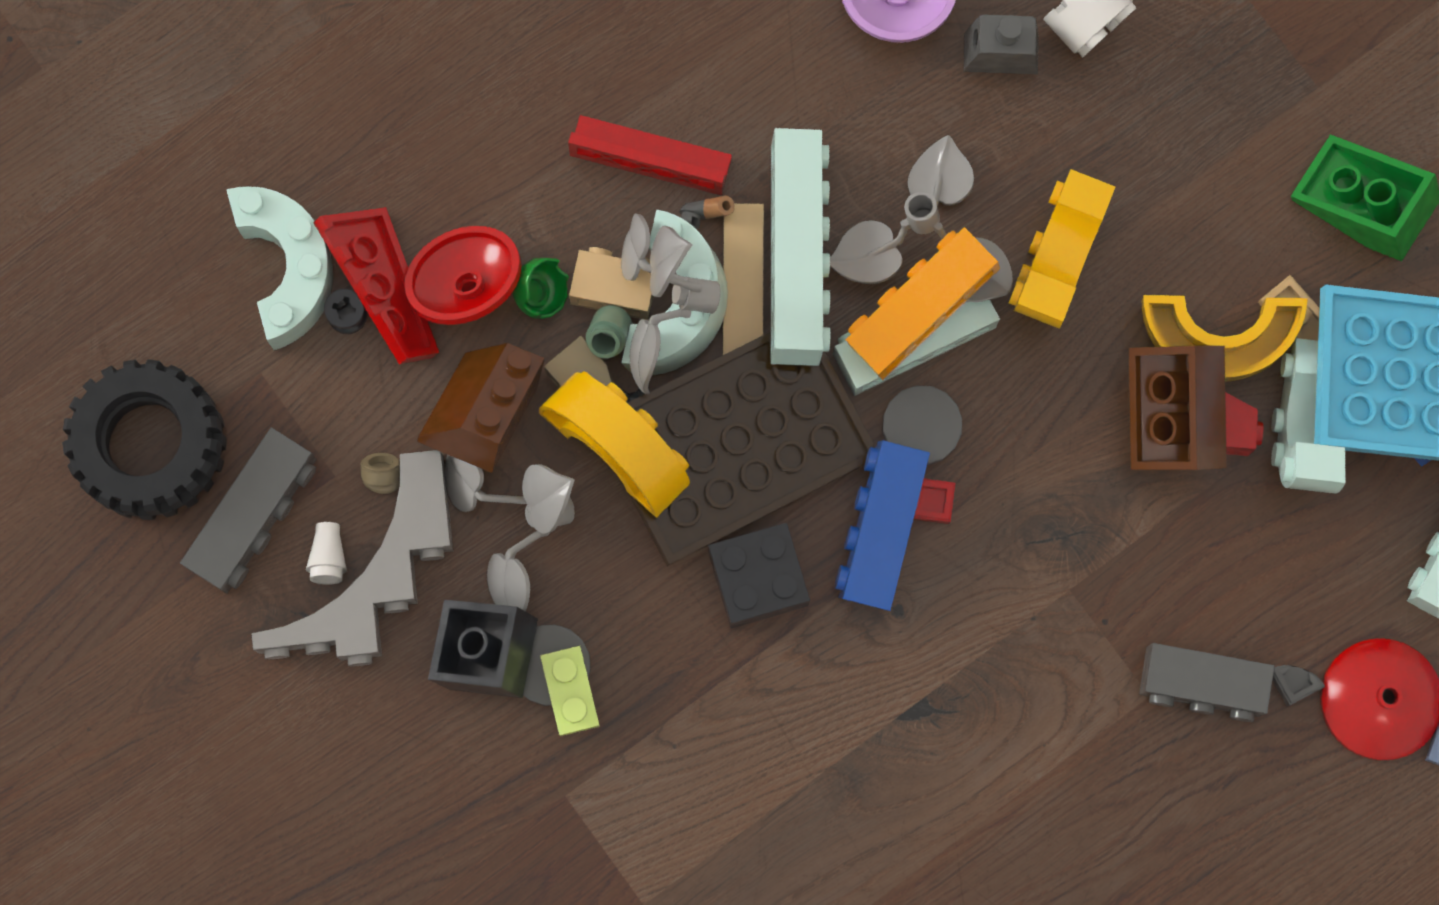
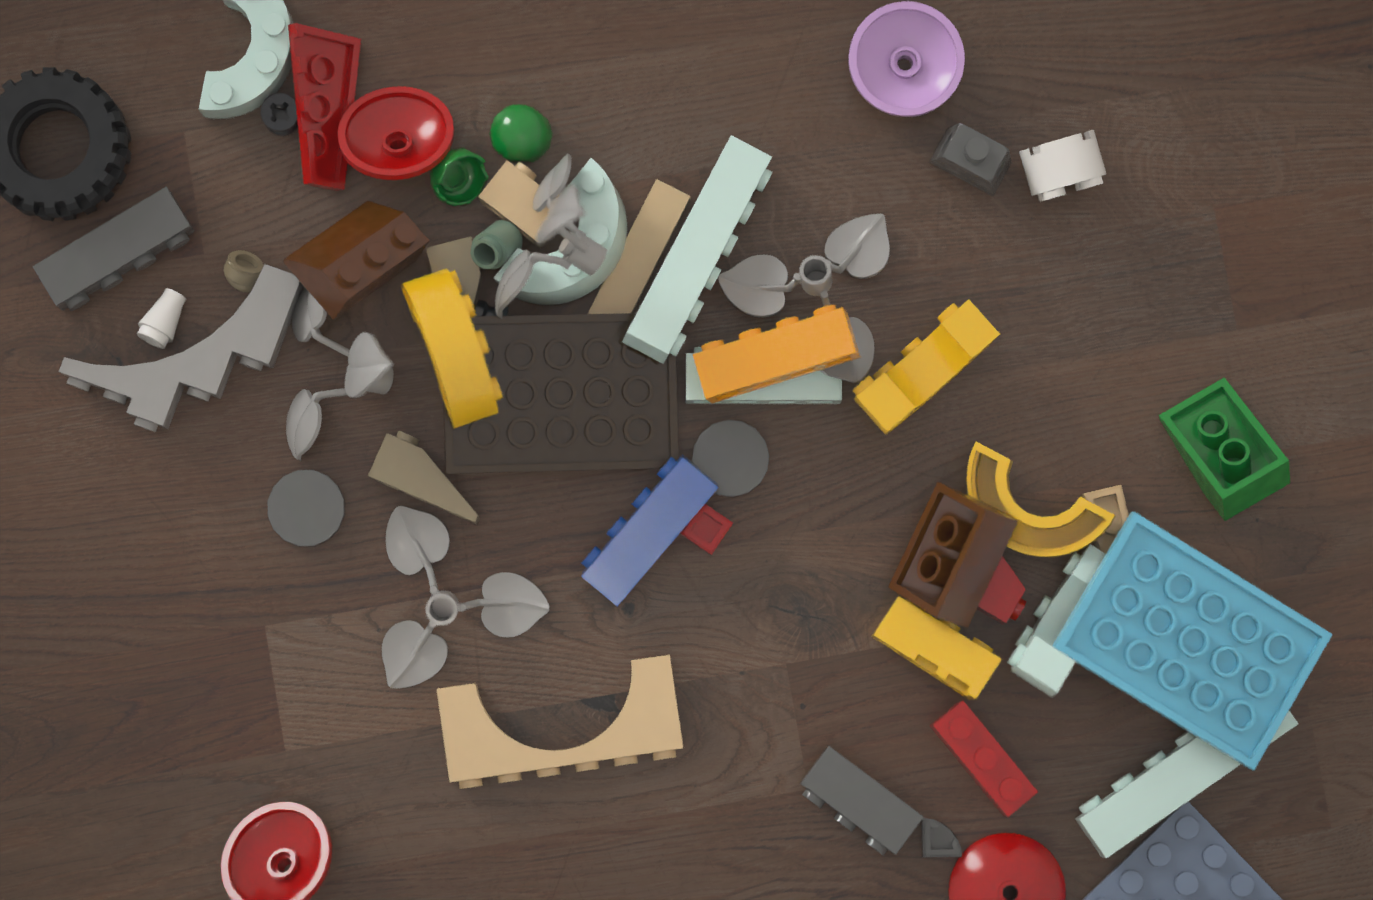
camera: 25 degrees right, 5 degrees up
(483, 648) = (253, 467): black brick -> none
(569, 691) = (310, 539): yellowish green plate -> none
(577, 222) = (520, 133): none -> green hair
(635, 581) = (412, 472): none -> dark tan slope
(650, 155) = (614, 103): red fence -> none
(706, 209) = (640, 176): arm -> none
(723, 750) = (414, 653): none -> light grey plant
(758, 575) = (520, 519): black brick -> none
(969, 710) = (481, 749): none -> tan arch
(1204, 504) = (937, 648): none -> yellow wedge
(1299, 585) = (983, 758): none -> red brick

